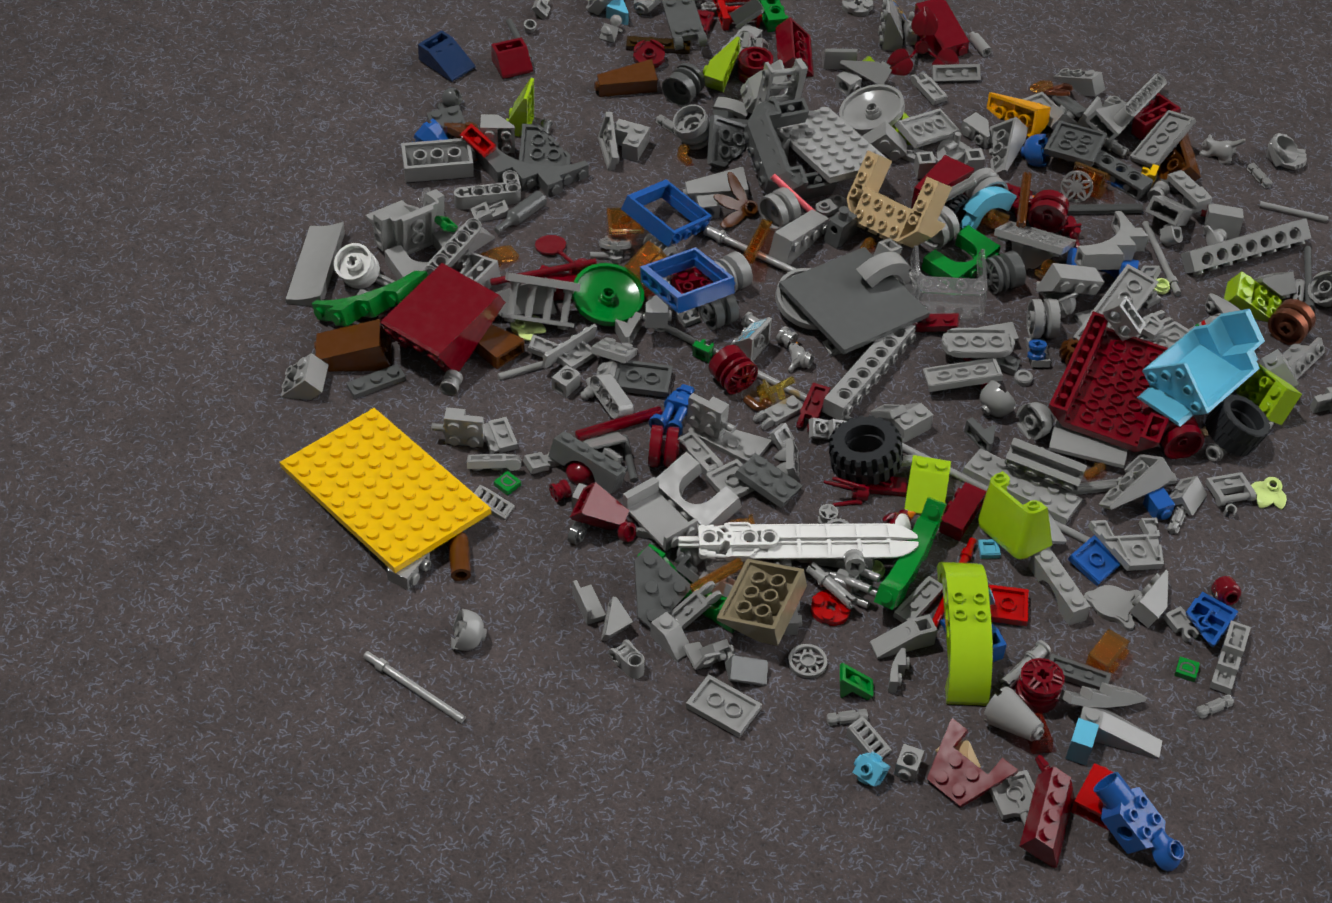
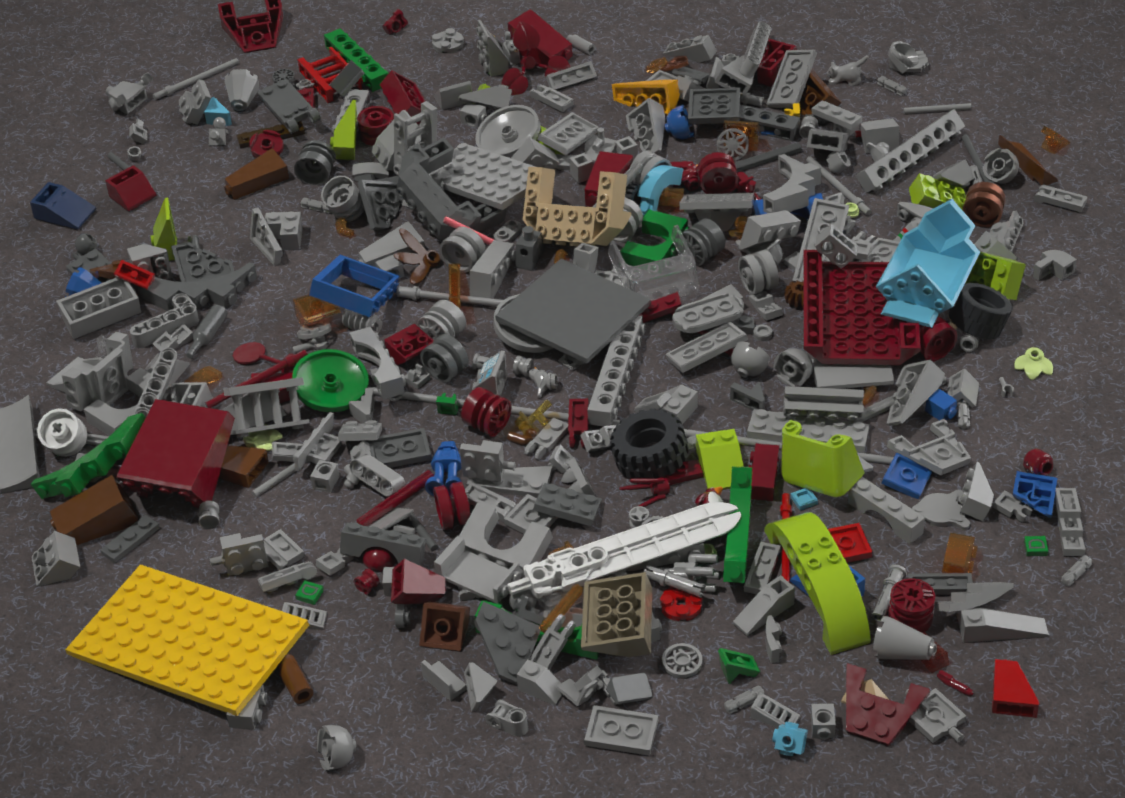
camera: 15 degrees left, 5 degrees down
(445, 223) = (137, 363): green tile -> none
(610, 554) = (444, 625): none -> copper slope
(627, 531) = (451, 596): dark red tile -> none
(647, 254) = (357, 337): clear orange brick -> none
(653, 274) = (371, 346): blue window -> none
(750, 40) = (363, 103): light grey slope -> none
(854, 556) = (685, 545): light grey wheel -> none
(884, 265) = (589, 269): light grey arch -> none
(977, 129) = (615, 121): light grey slope -> none
(1023, 200) = (690, 170): reddish brown axle -> none
(1037, 350) = (765, 302): blue wheel -> none
(1048, 816) = (975, 722): dark red slope -> none
(1082, 741) = (975, 644): medium azure slope -> none
(1136, 821) = (1059, 698): blue brick -> none
(1230, 484) = (996, 366): light grey plate -> none

